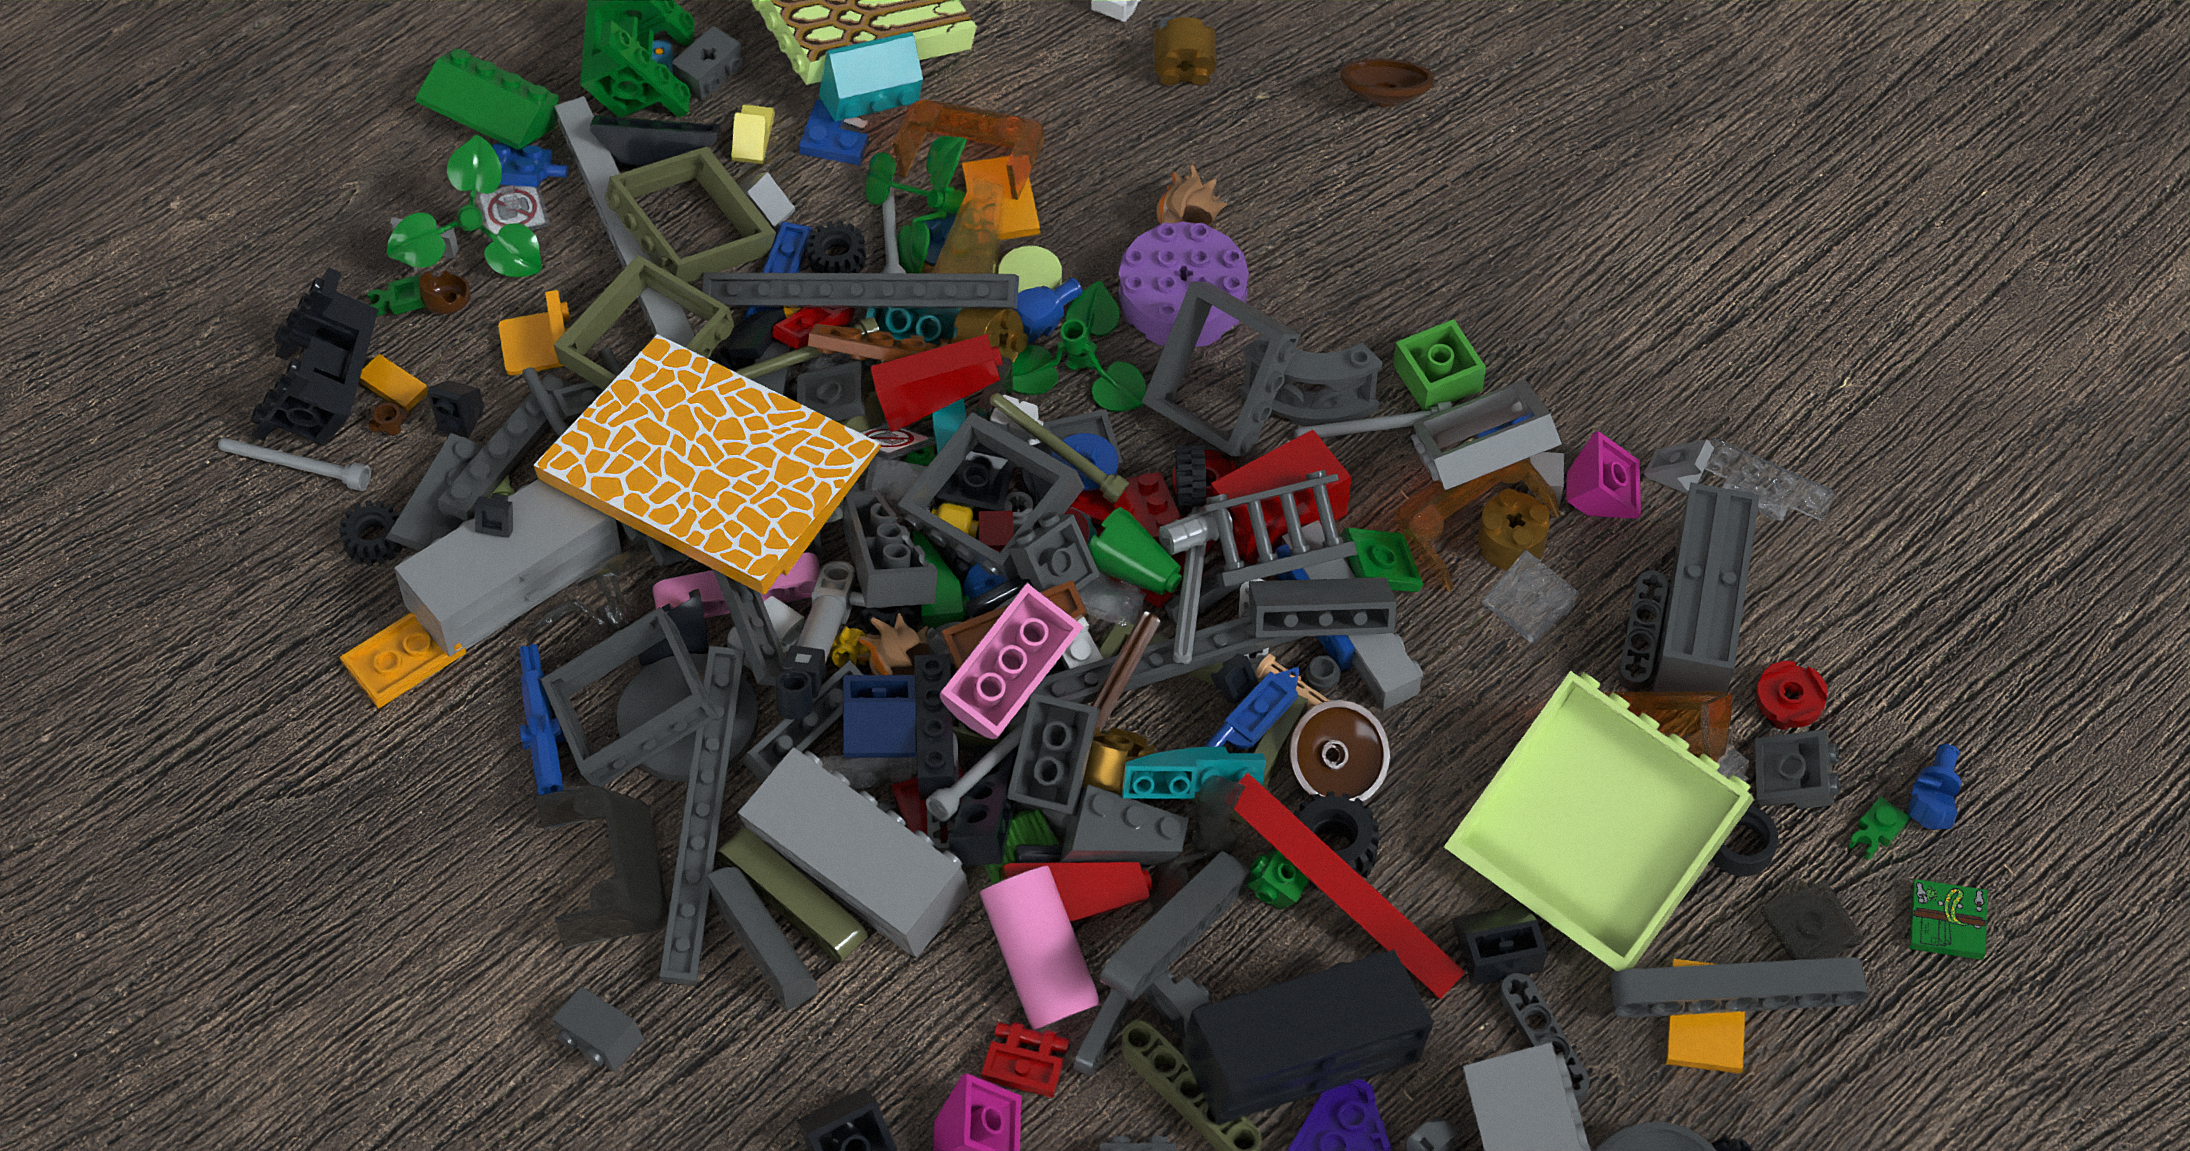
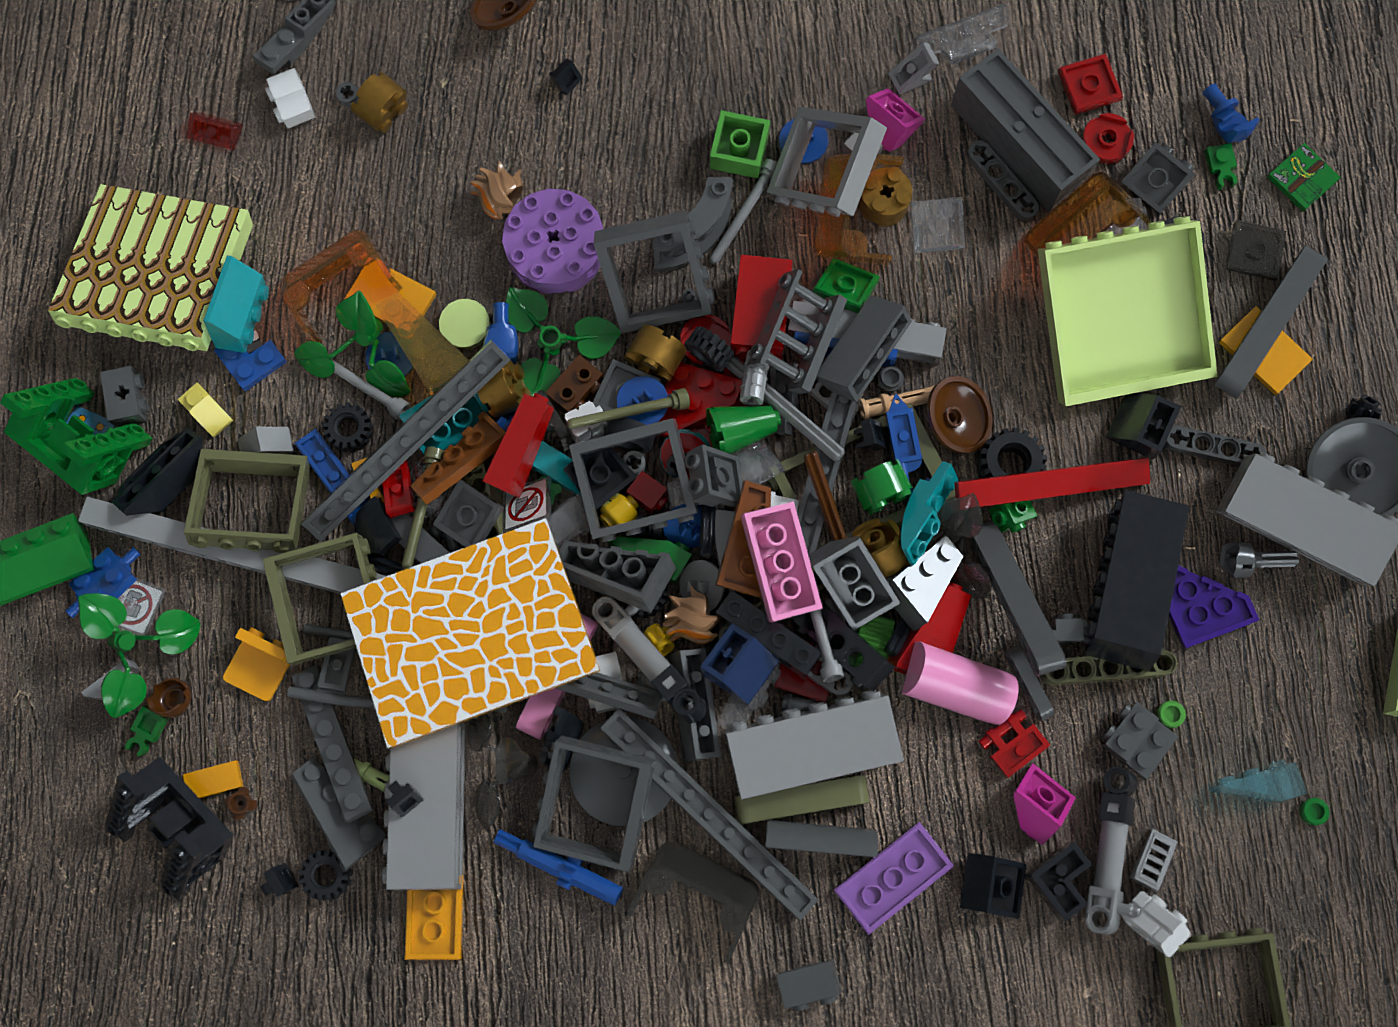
camera: 50 degrees left, 20 degrees up
(336, 497) = (279, 881): none -> black tile
(355, 476) = (269, 856): light grey piece -> none
(456, 407) = (273, 755): black slope -> none
(780, 1043) = (893, 878): none -> medium lavender tile
(1053, 396) = (575, 385): none -> reddish brown brick
(1146, 439) = (656, 353): none -> pearl gold brick
(1183, 716) = (881, 486): none -> green brick
(1364, 181) = (566, 76): none -> black tile
(1835, 637) = (1090, 84): none -> red plate

